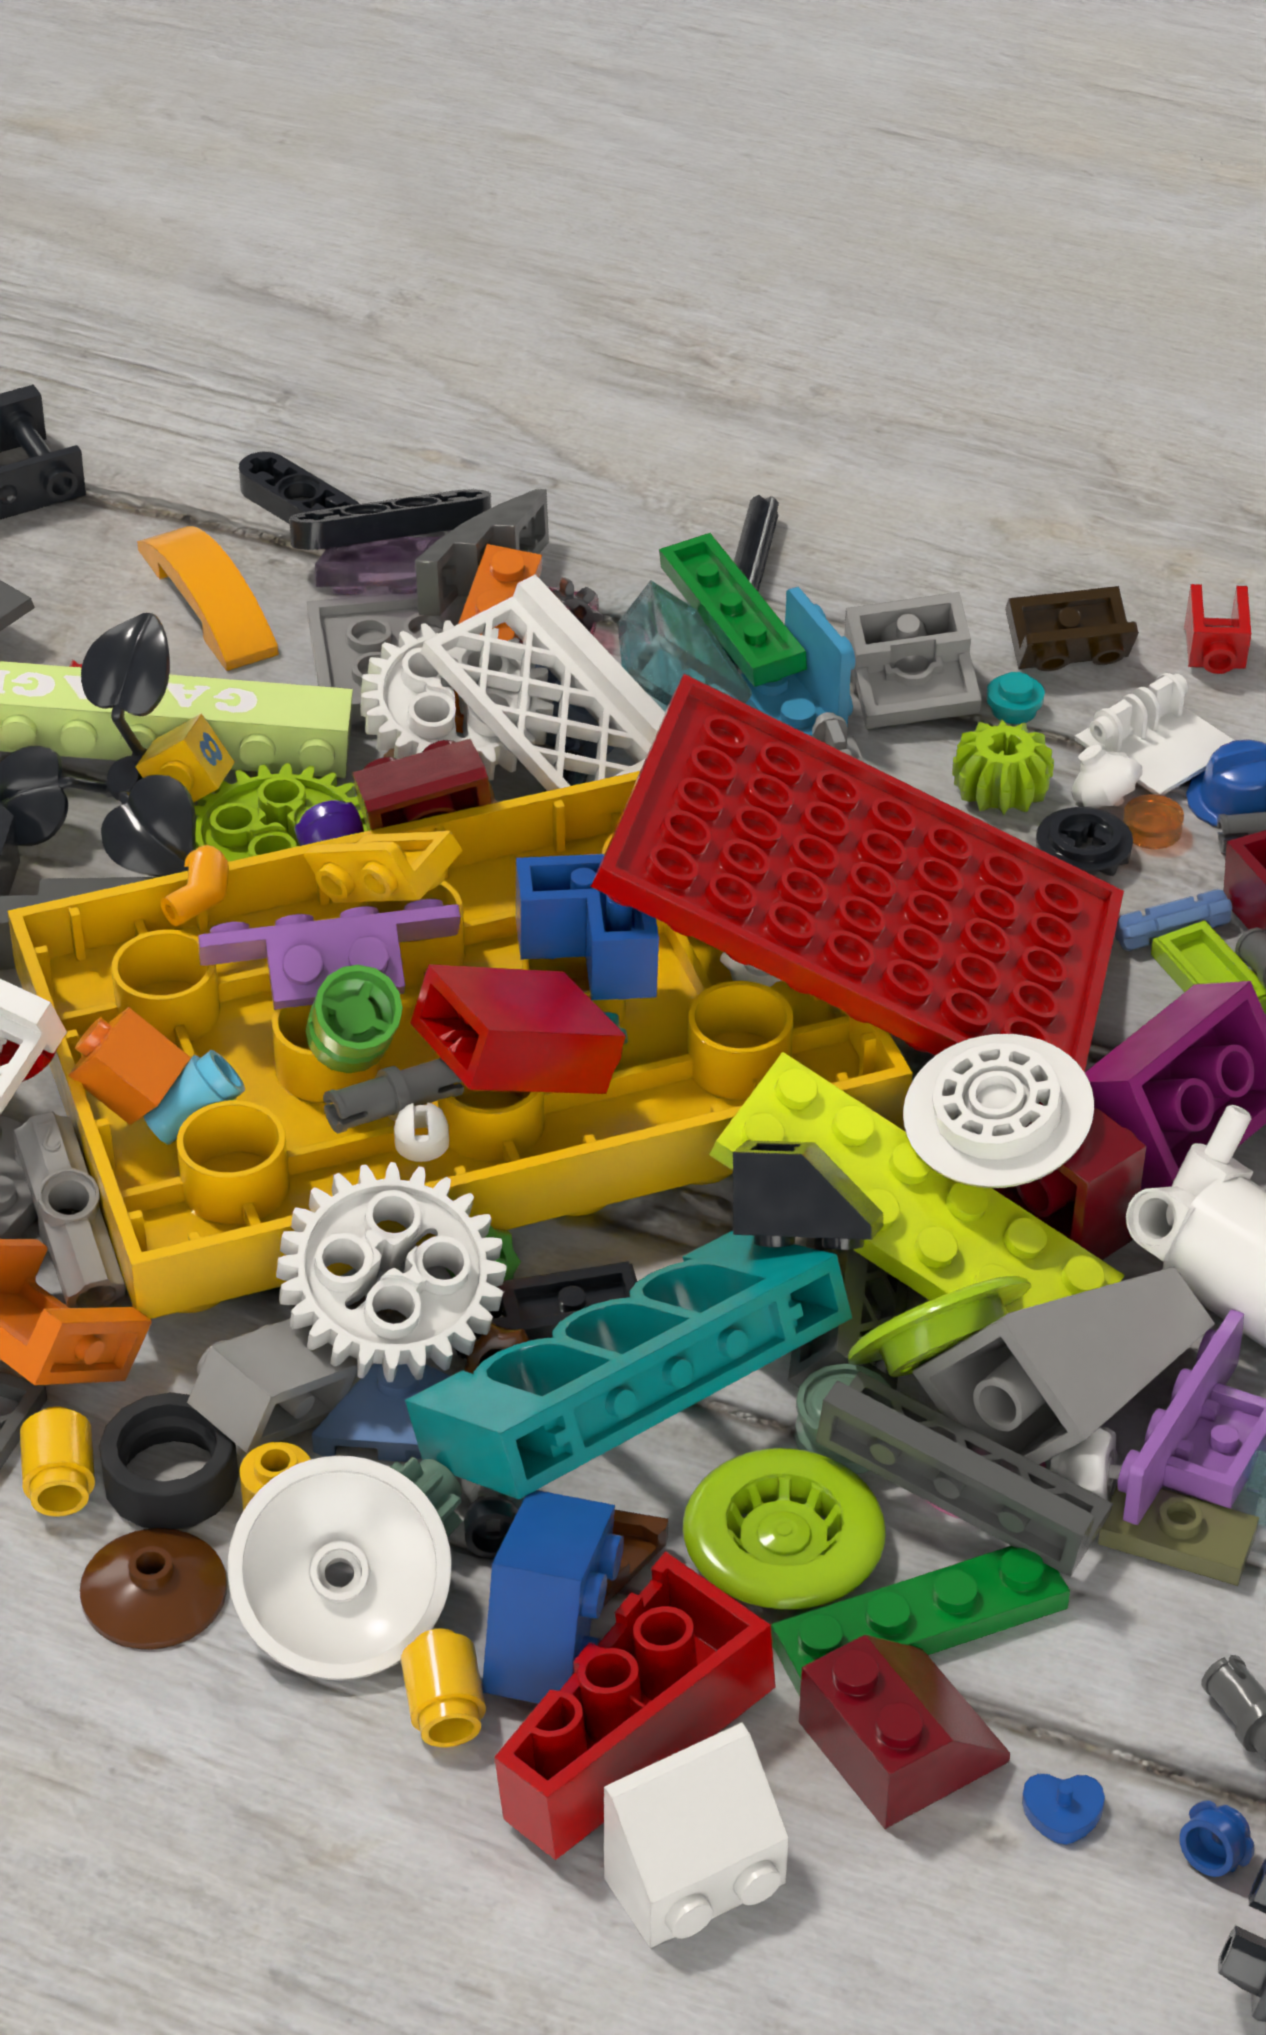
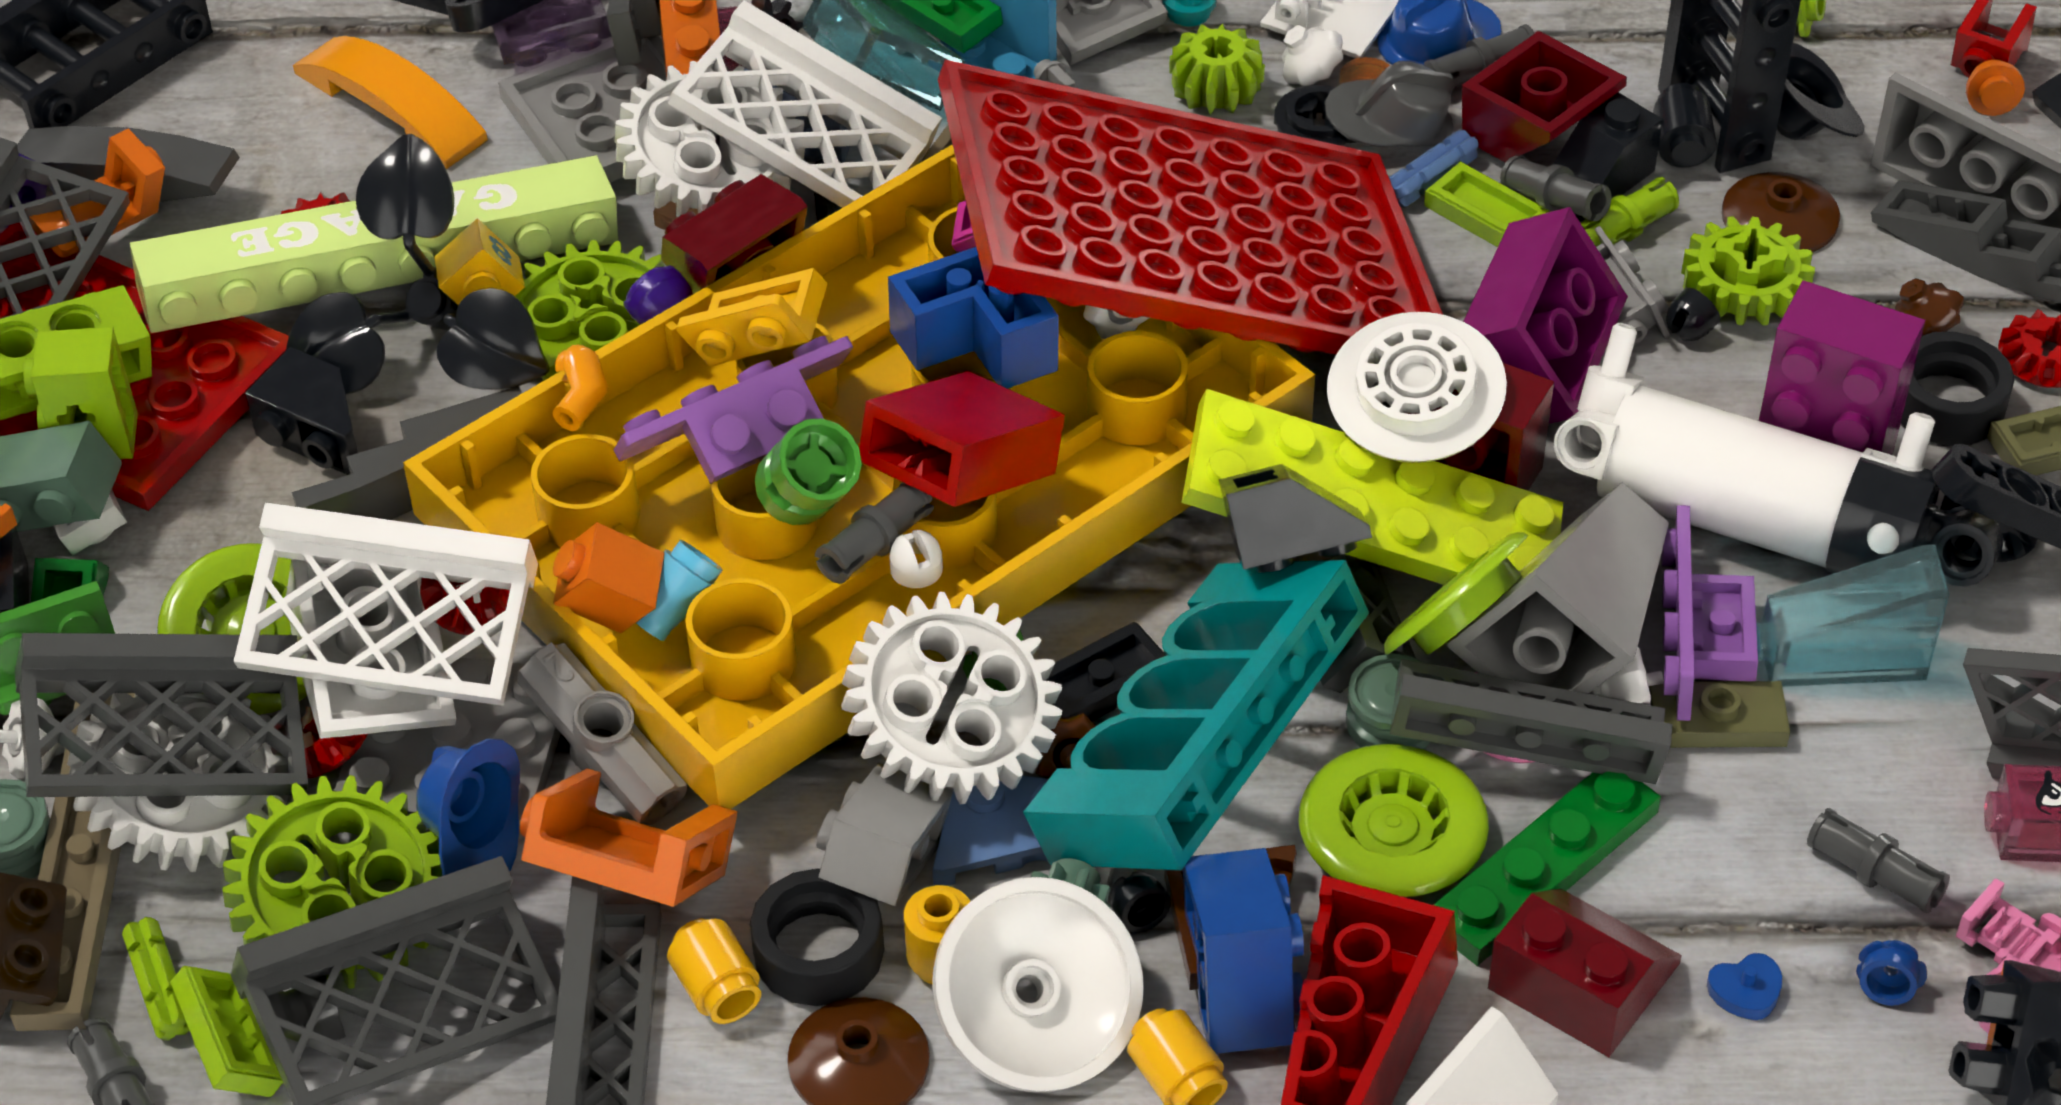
camera: 20 degrees left, 5 degrees up
(1164, 852) = (1396, 109): none -> dark grey piece

